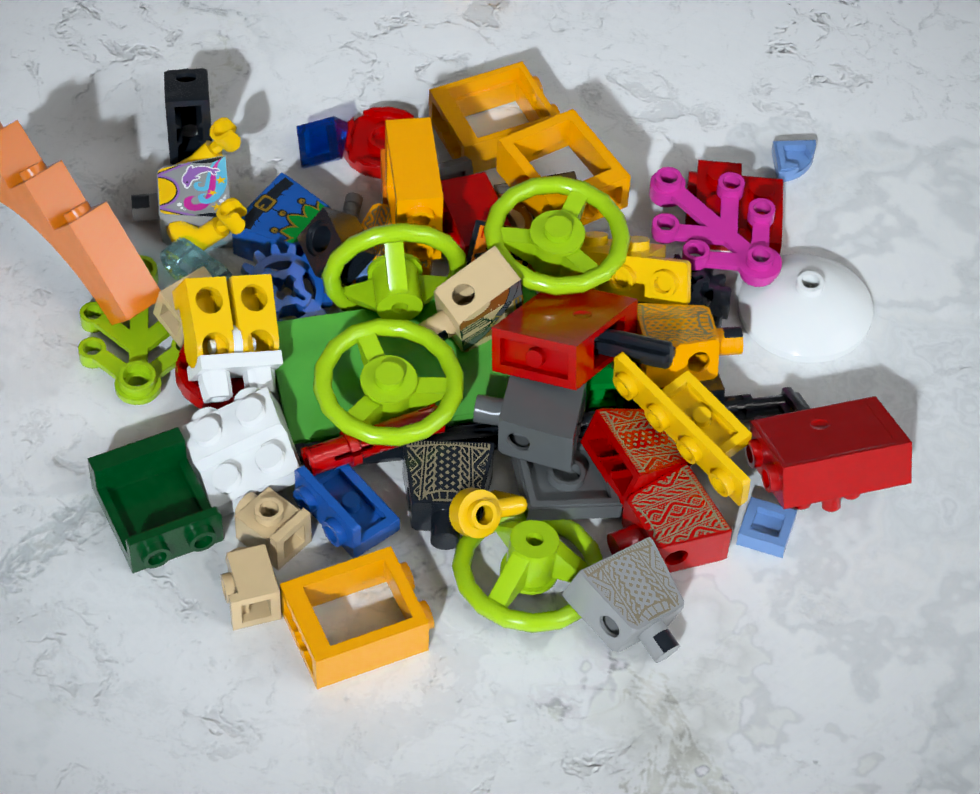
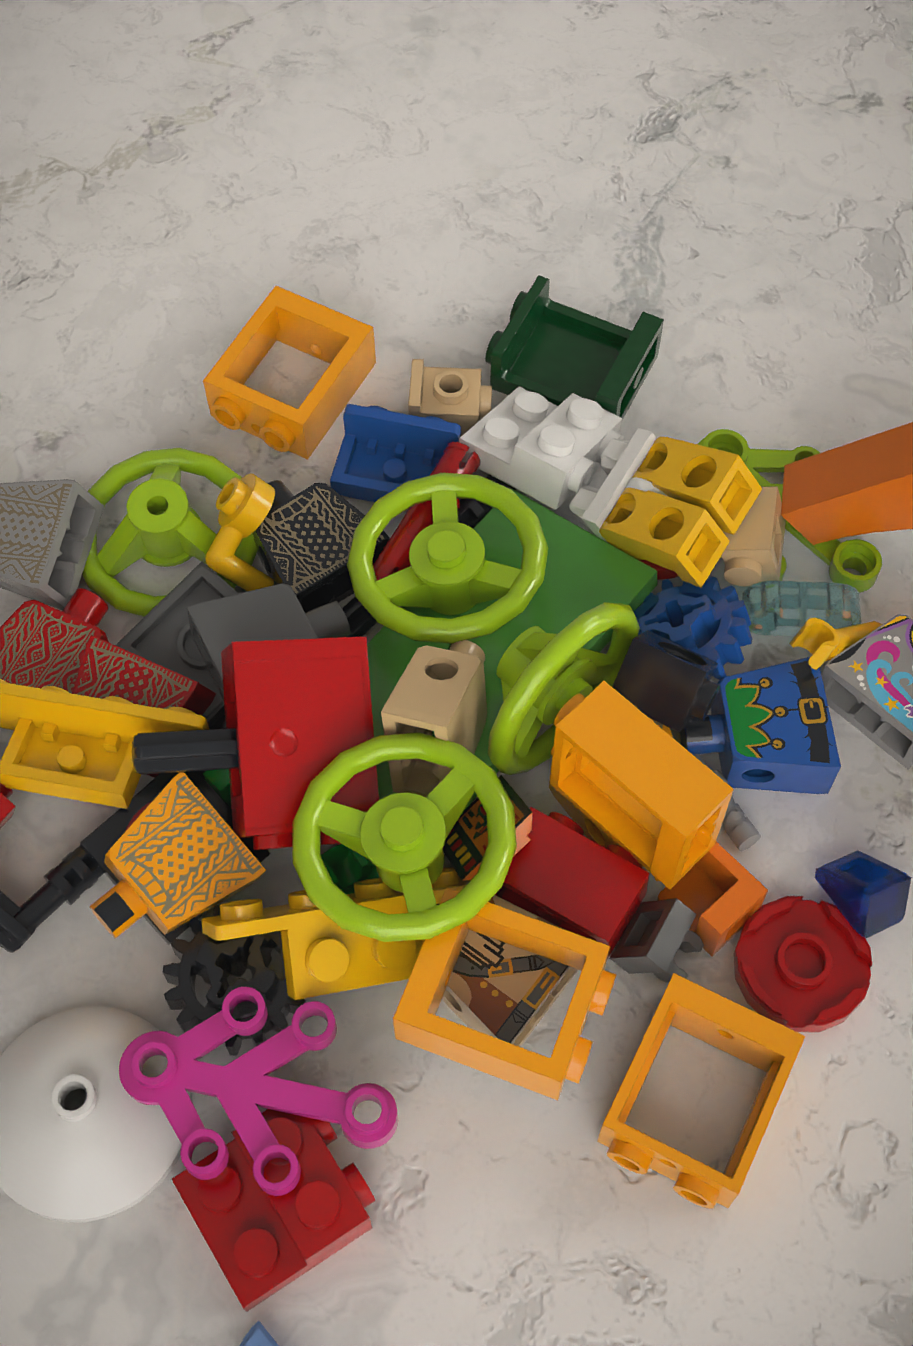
camera: 145 degrees right, 10 degrees up
(250, 587) = (410, 332): tan brick -> none

